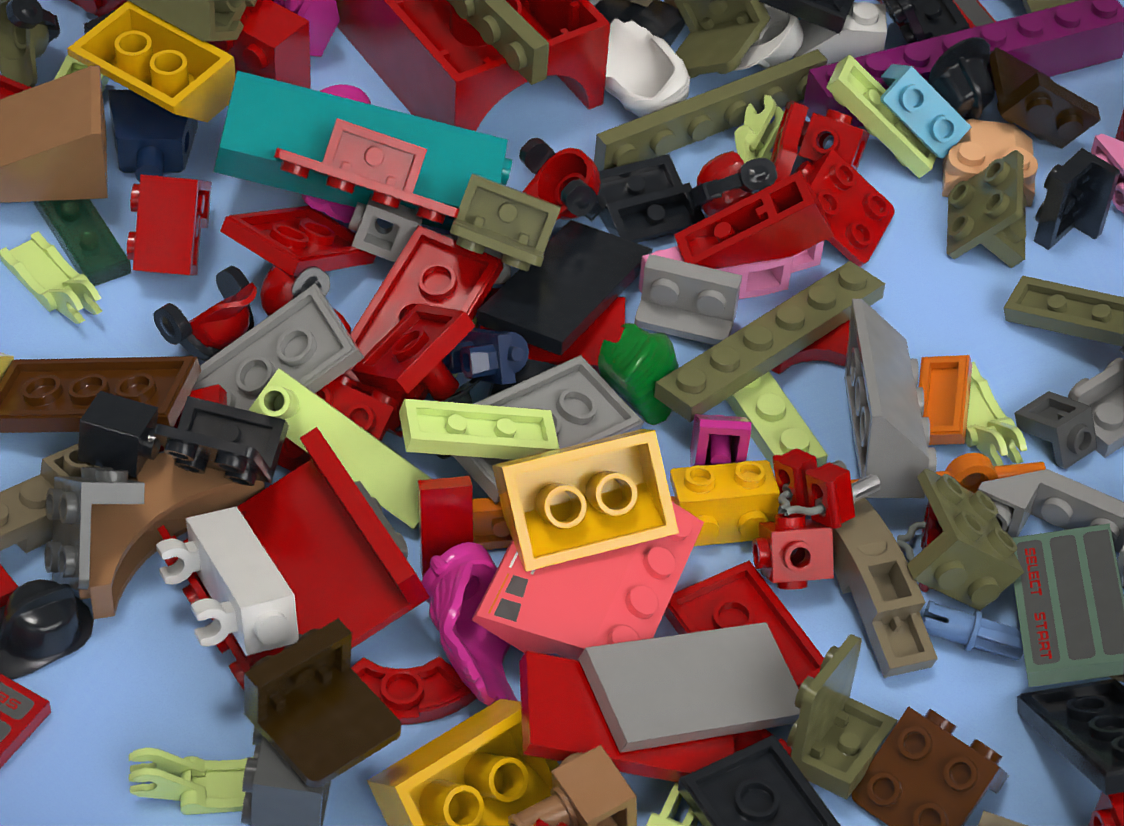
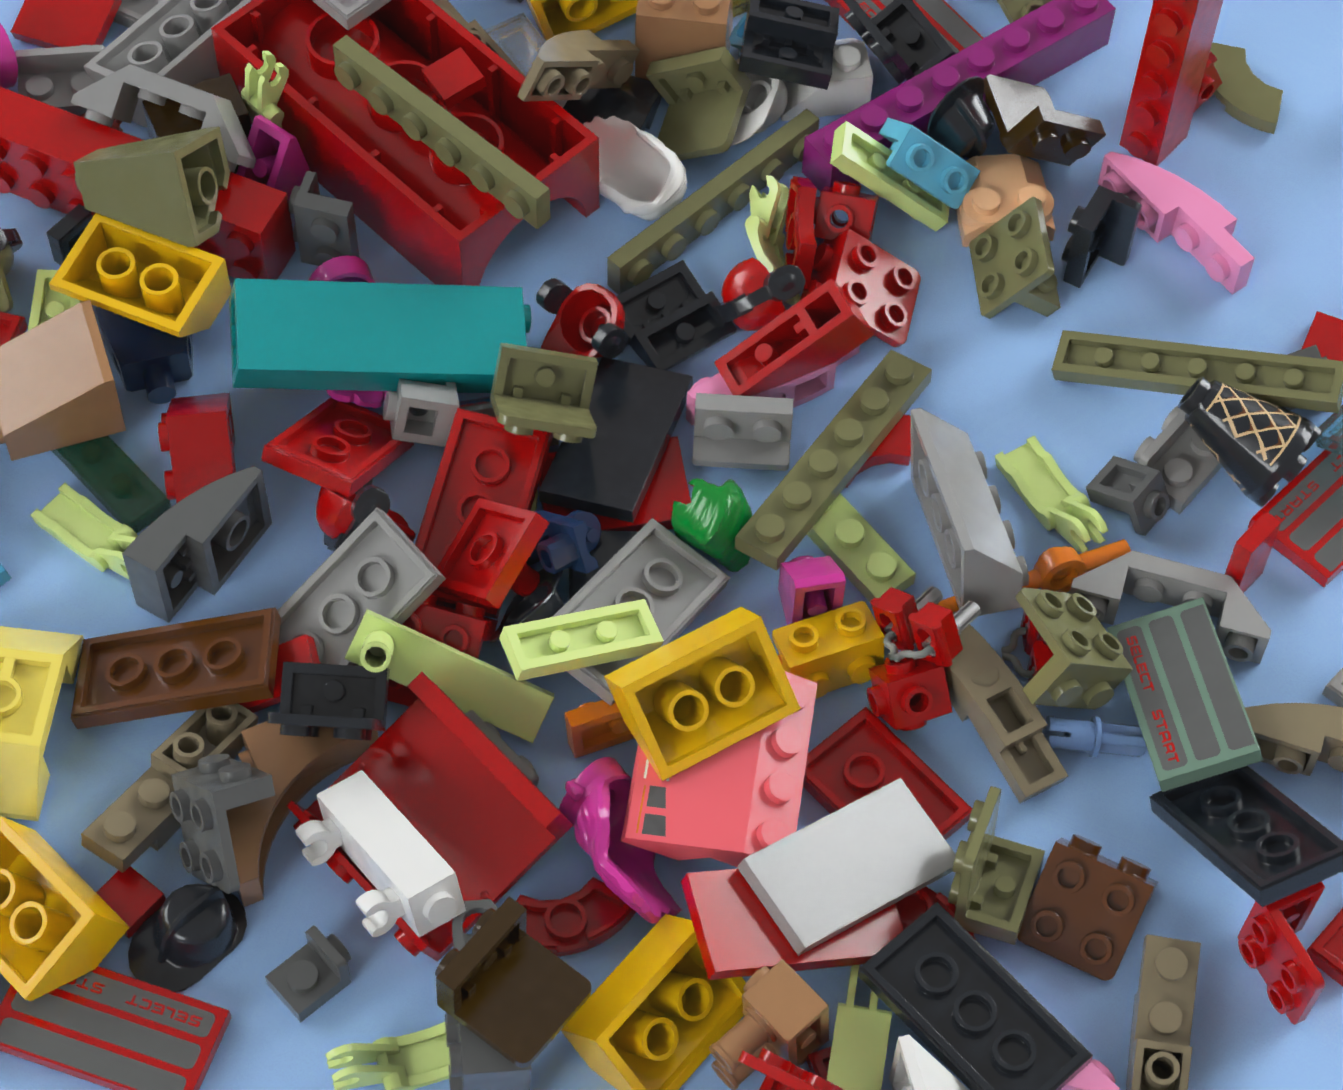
camera: 10 degrees left, 10 degrees up
(117, 295) = (197, 542): none -> dark grey slope
(118, 433) = (224, 715): black brick -> none
(139, 687) = (311, 974): none -> dark grey bracket
(217, 325) = (281, 558): cap -> none
(337, 54) = (322, 223): none -> dark grey bracket
(371, 162) = (396, 354): bracket -> none
(444, 516) = (567, 738): red tile -> none
(946, 397) = (1015, 474): orange tile -> none

